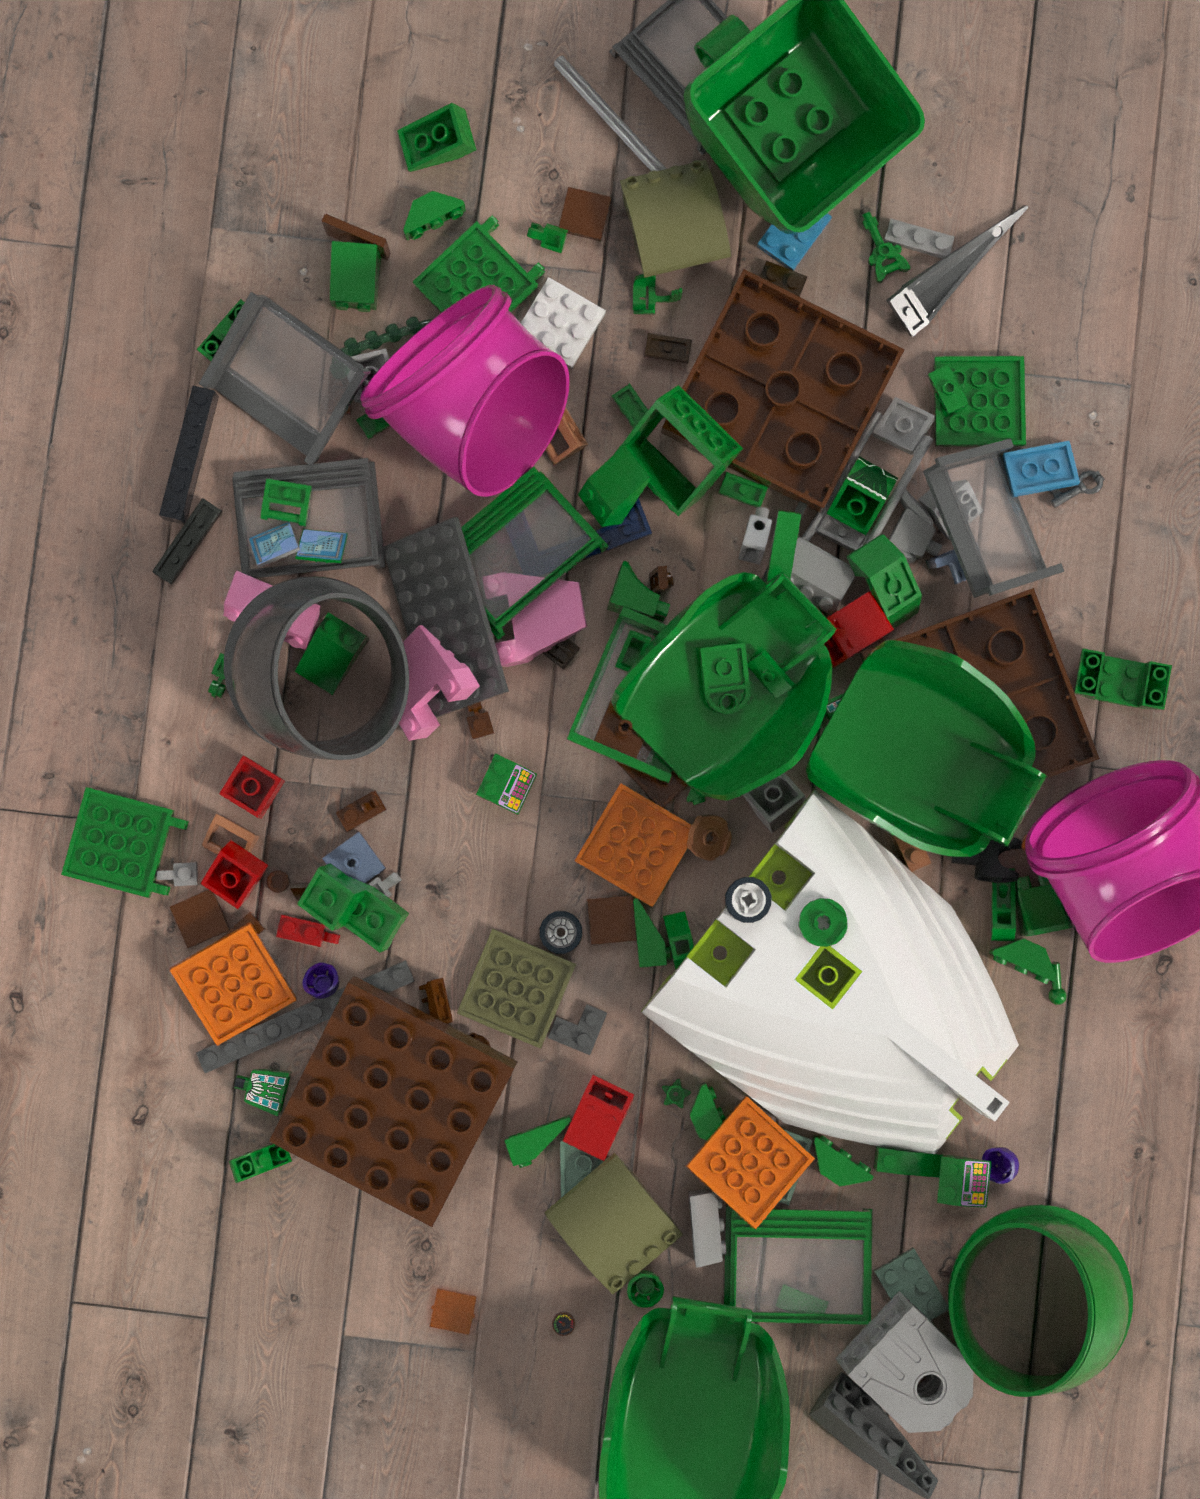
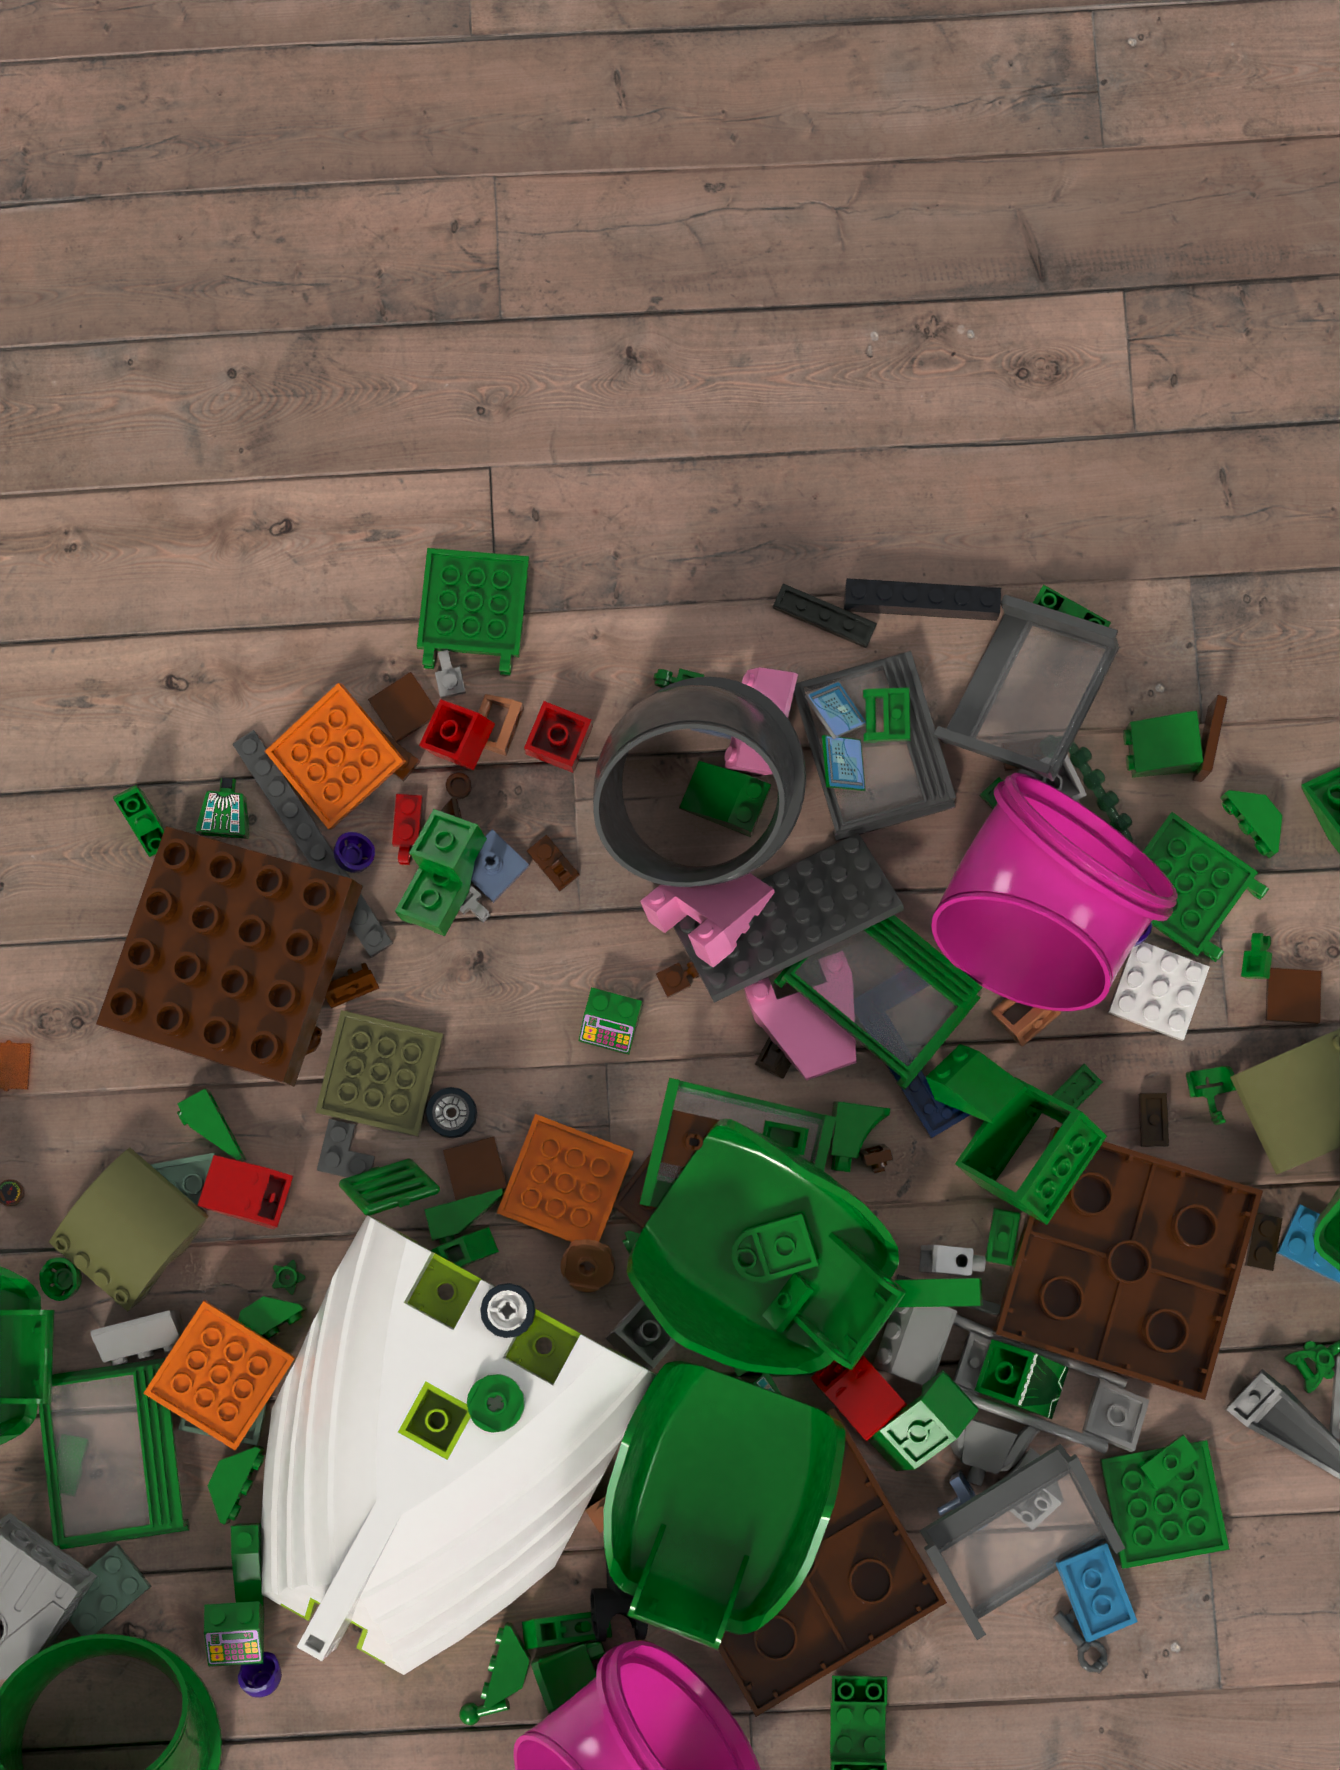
camera: 85 degrees right, 5 degrees down
(633, 982) = (392, 1181): none -> green bar

